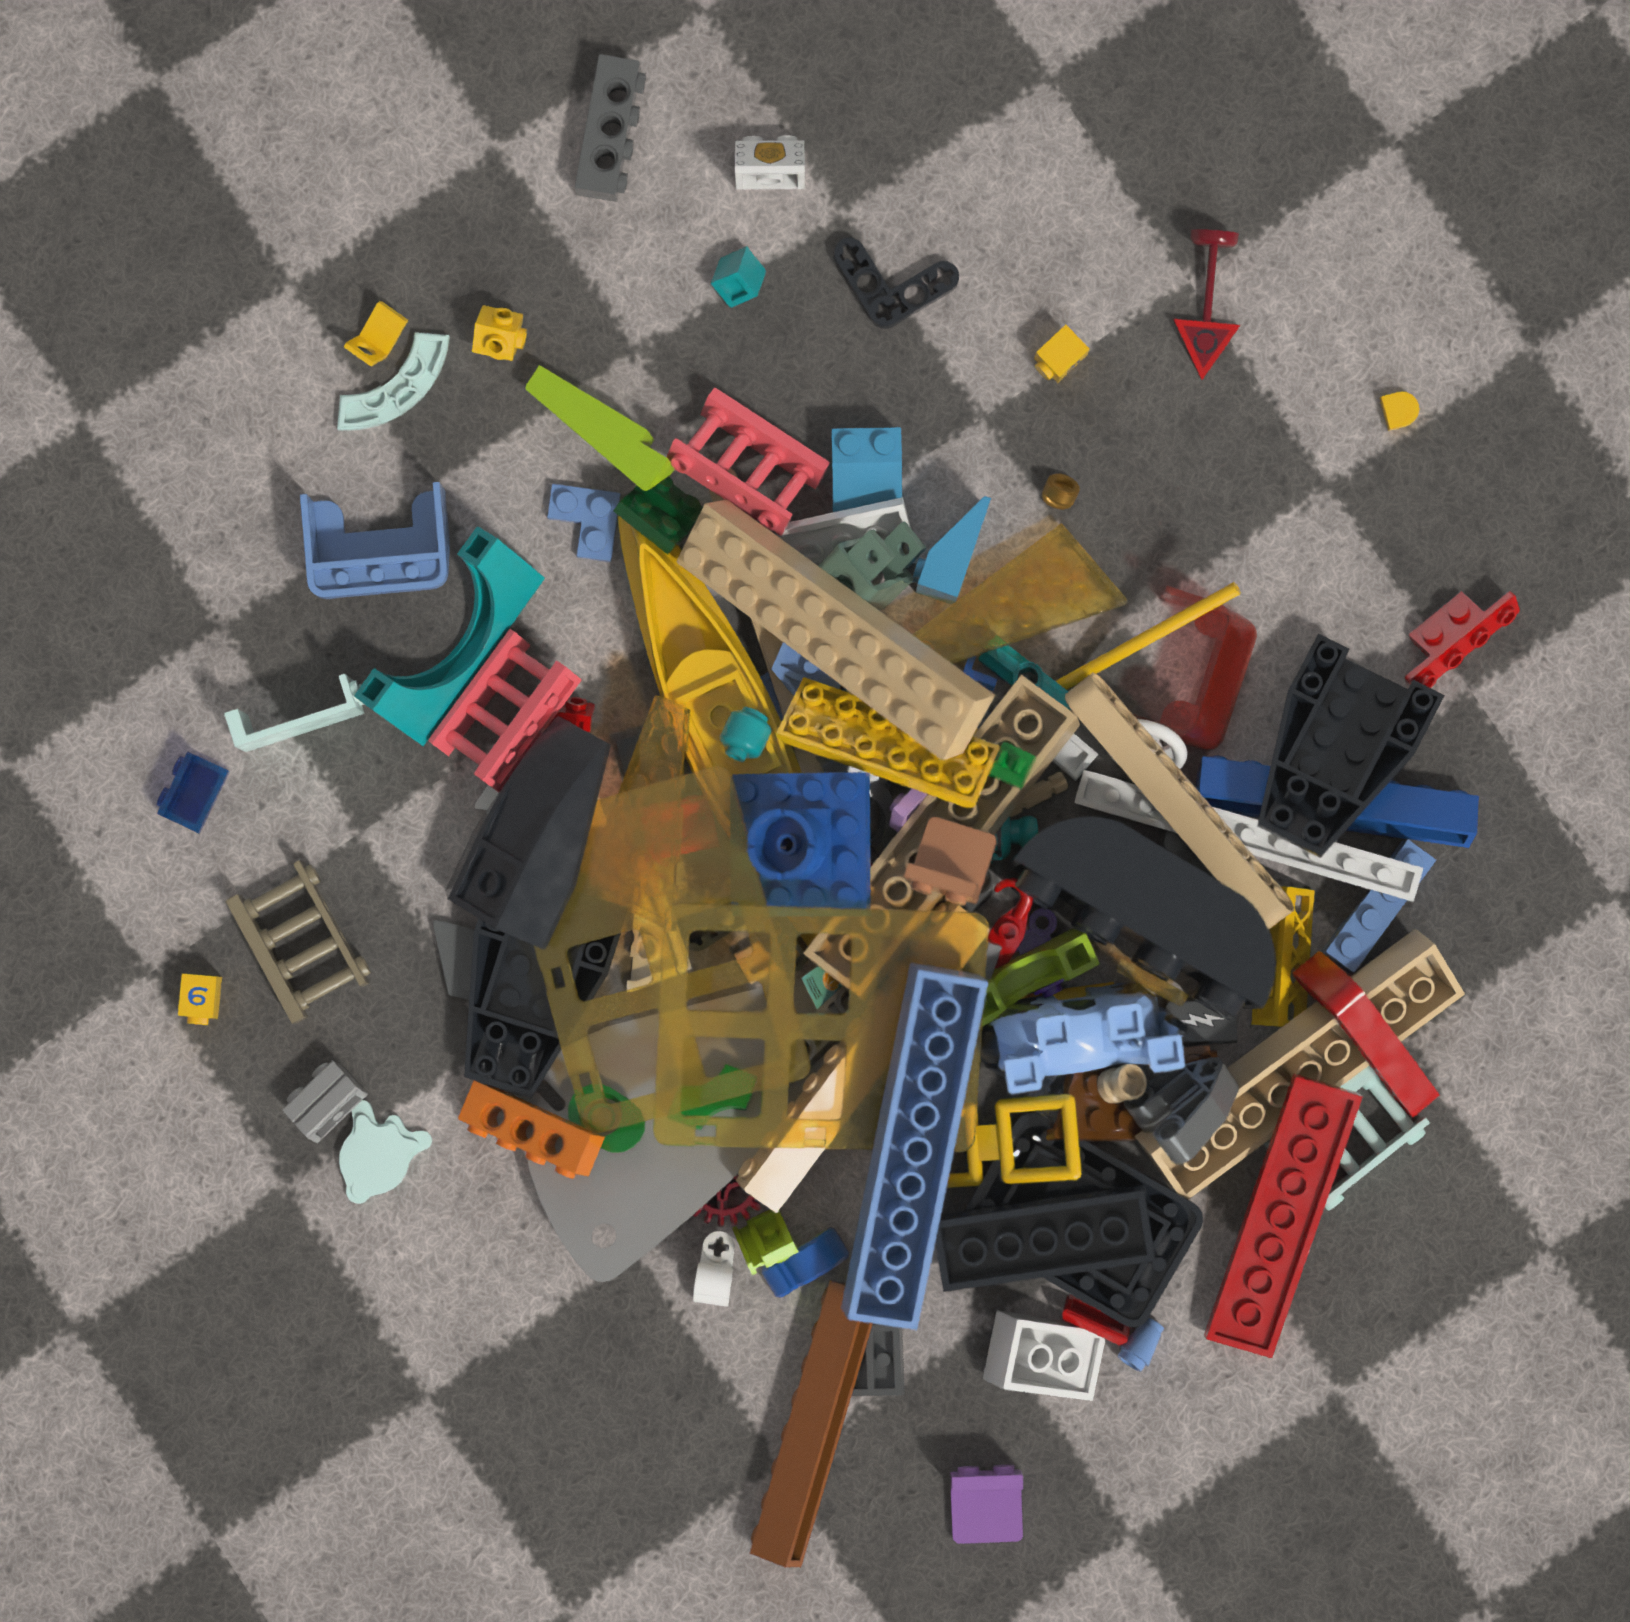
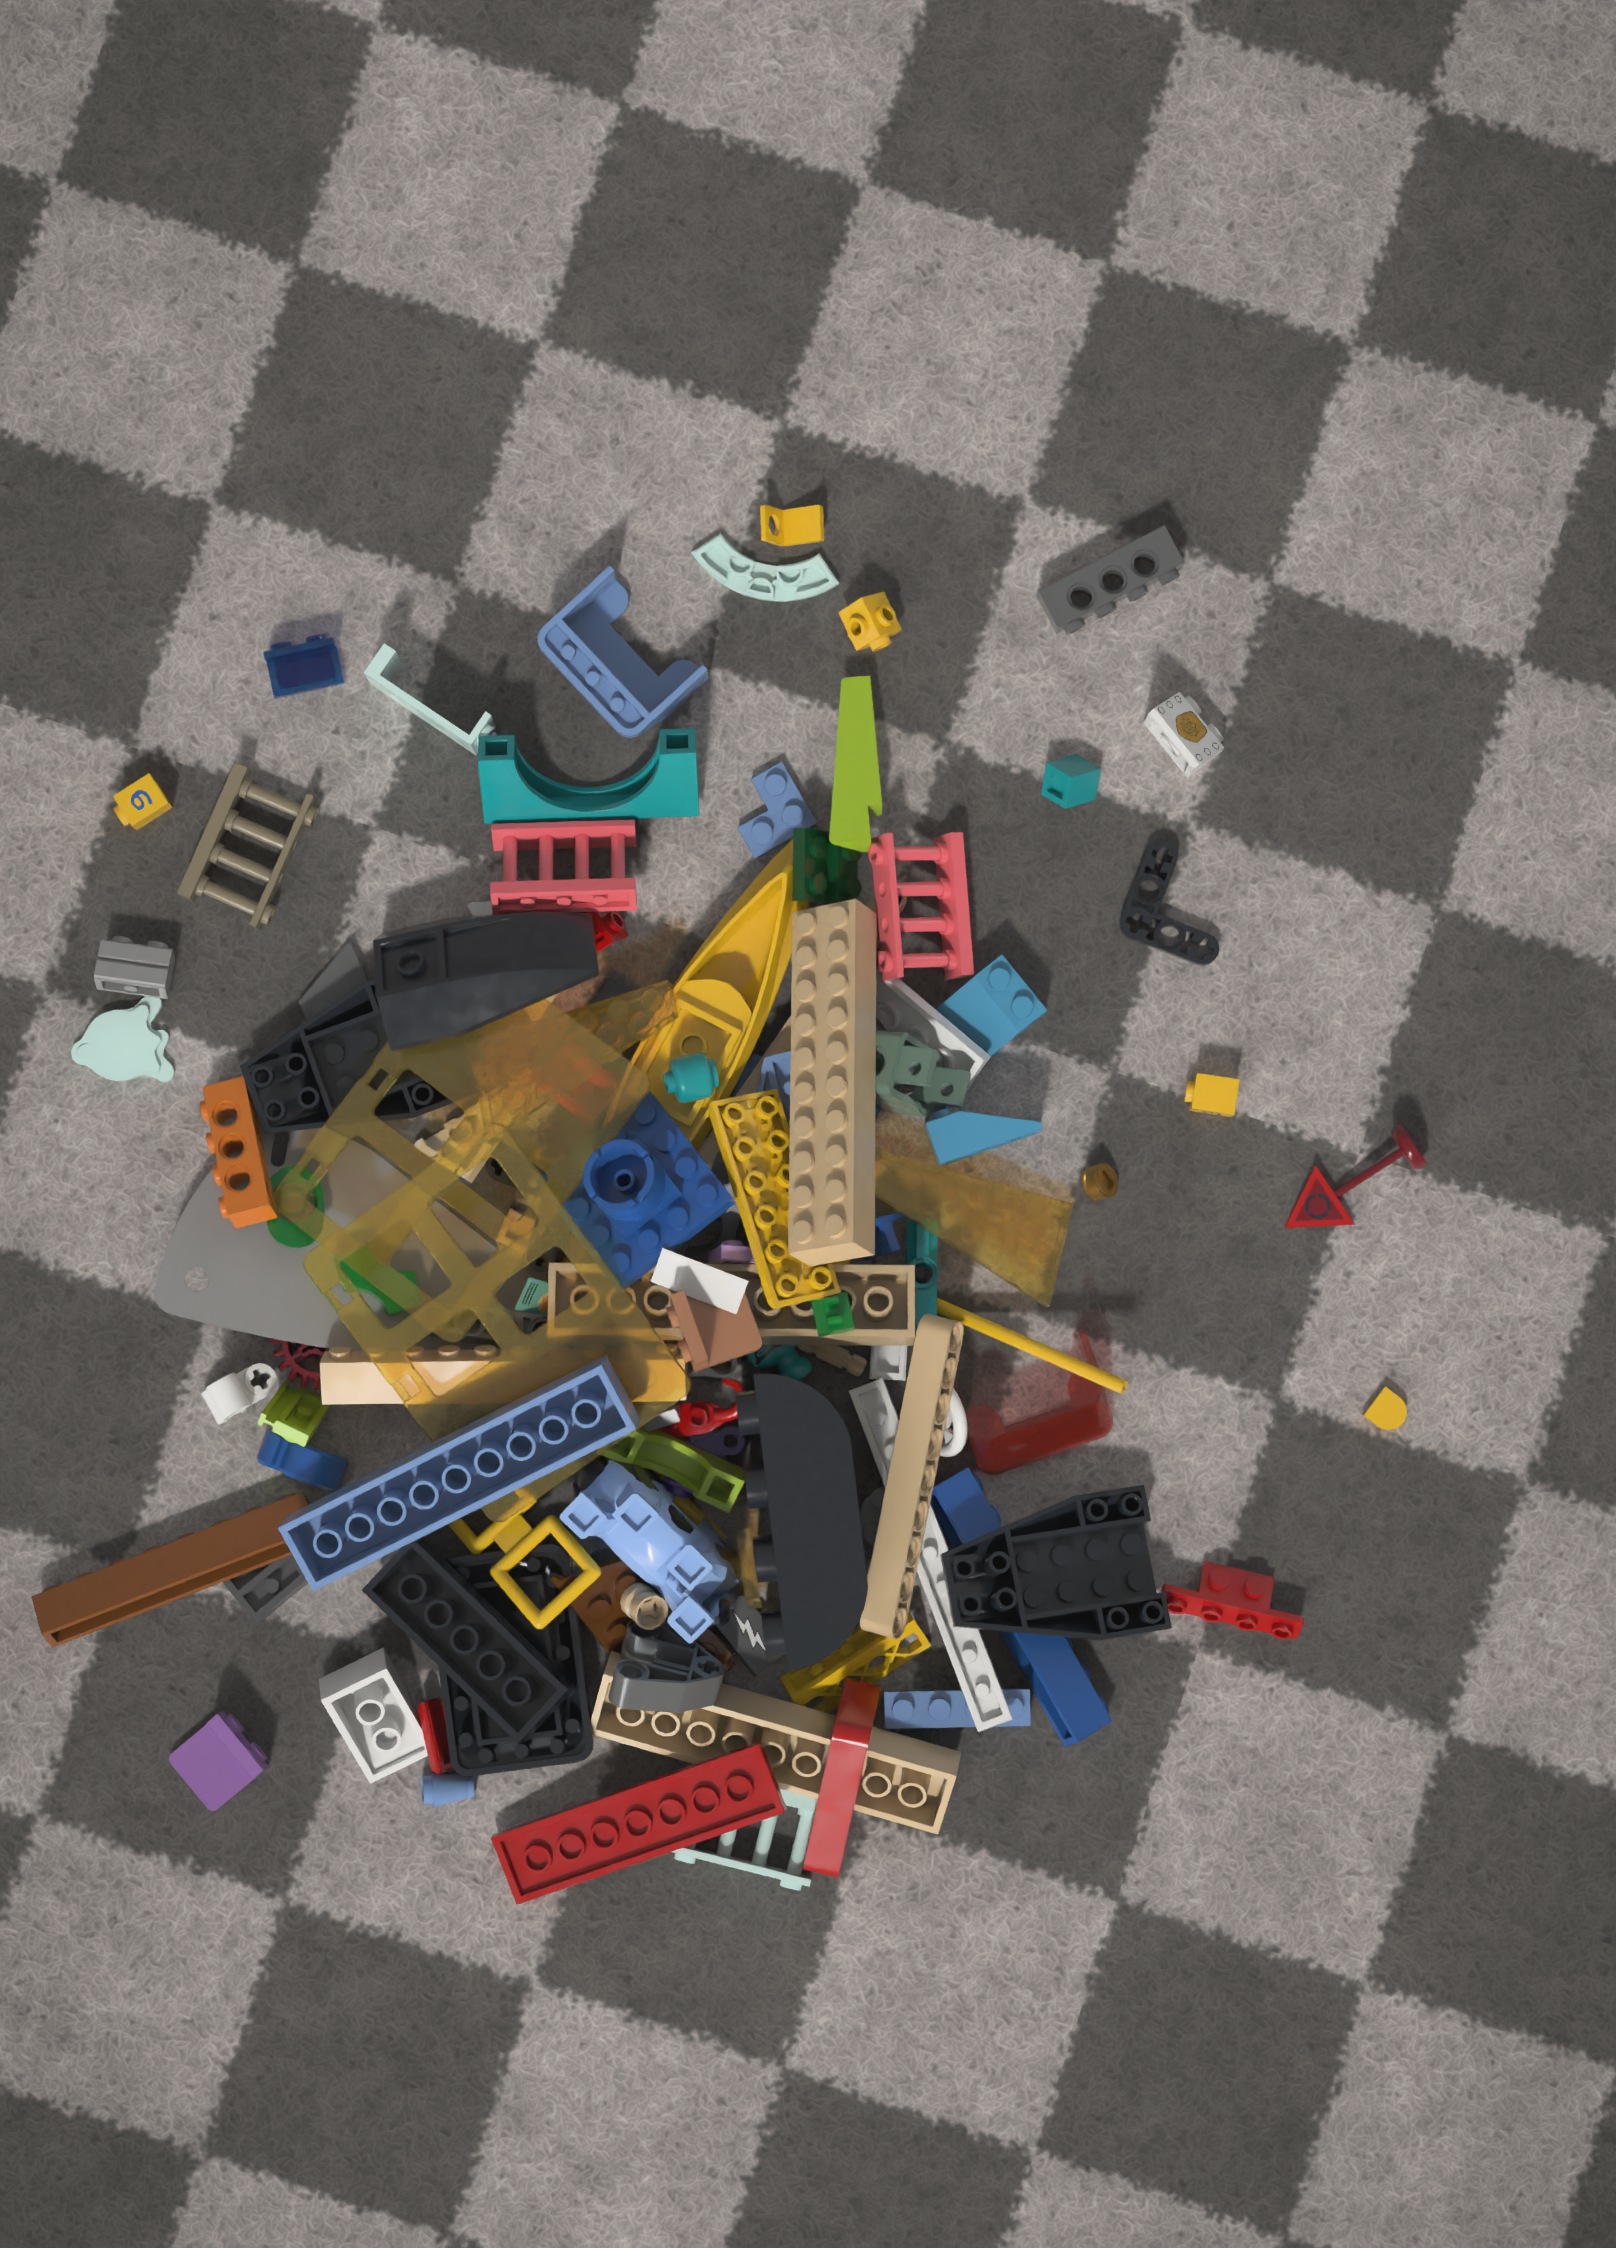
camera: 55 degrees right, 0 degrees up
(908, 846) = (699, 1281): none -> white sticker

